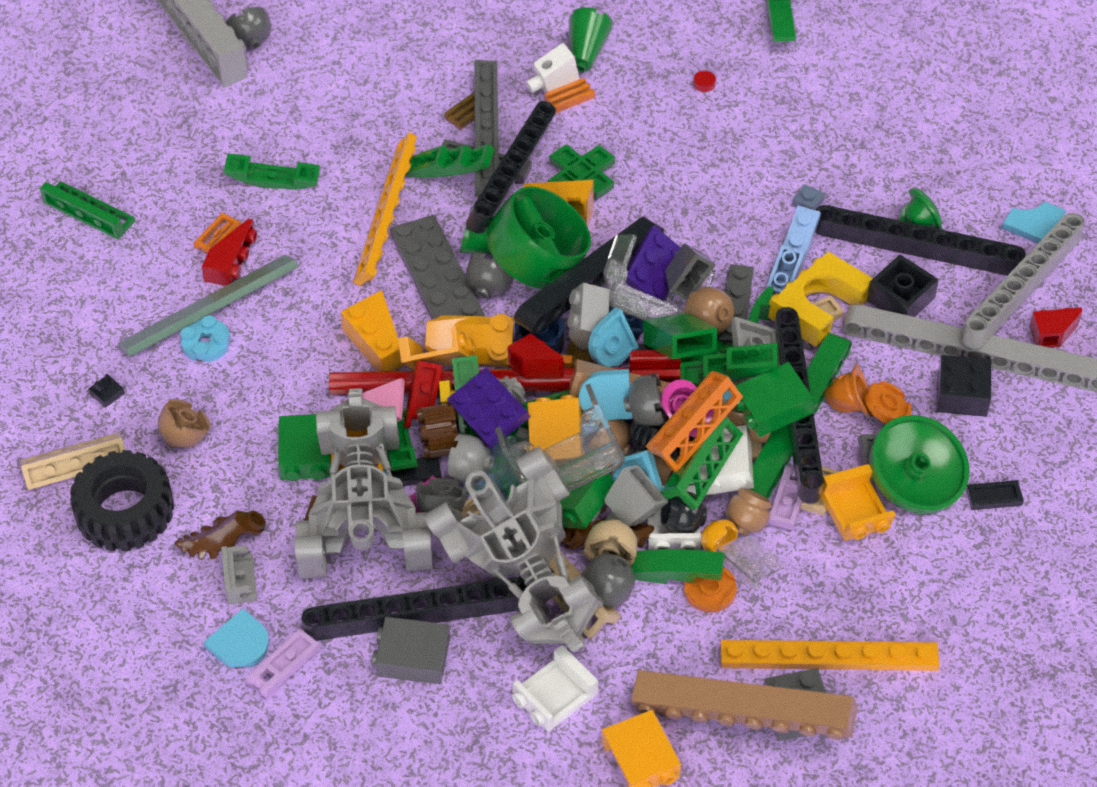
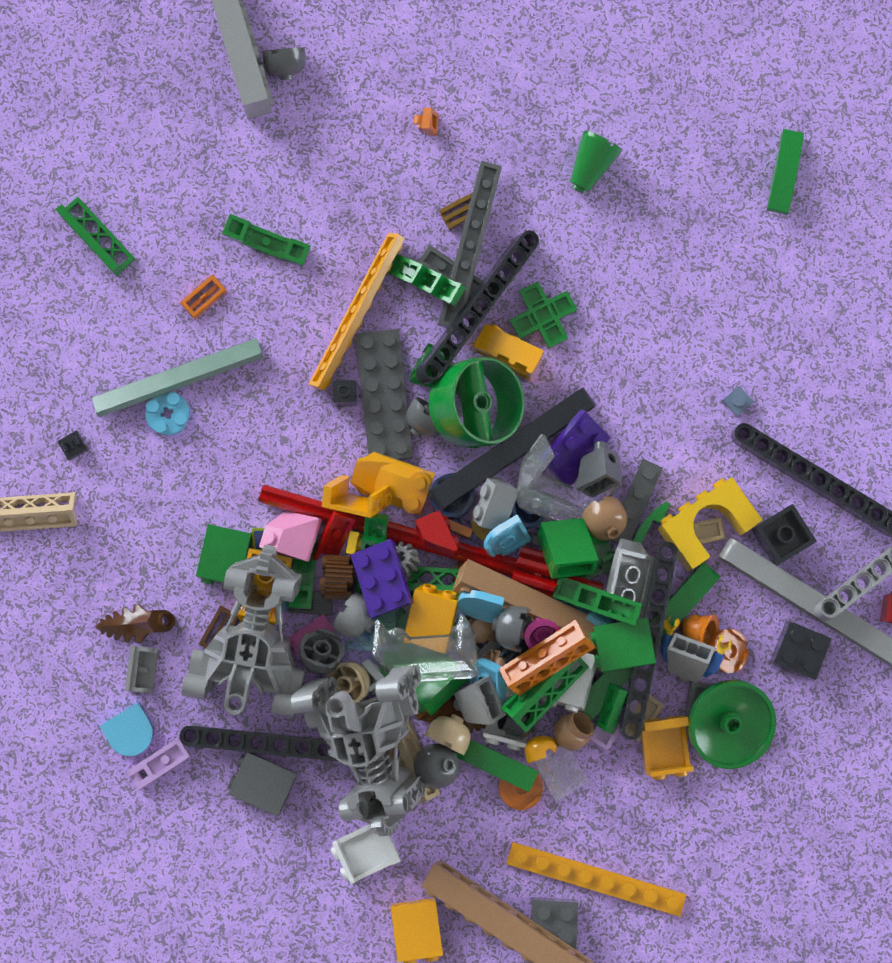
camera: 15 degrees right, 30 degrees up
(116, 474) = (31, 569): black tyre -> none
(182, 425) = (127, 508): medium nougat cylinder -> none
(226, 257) = (204, 329): red slope -> none
(373, 332) = (311, 451): light orange wedge -> none
(394, 276) = (344, 393): none -> black brick
(409, 47) = (428, 121): none -> orange tile
(554, 70) = (558, 194): white torso -> none
(568, 92) = (577, 213): orange tile -> none
(704, 81) = (688, 234): red tile -> none
(782, 473) = (611, 708): none -> green plate
(795, 248) = (702, 464): light blue slope -> none
(848, 409) = (690, 657): none -> light grey torso
(921, 210) = (832, 451): green helmet -> none
(994, 495) = (786, 763): black tile -> none

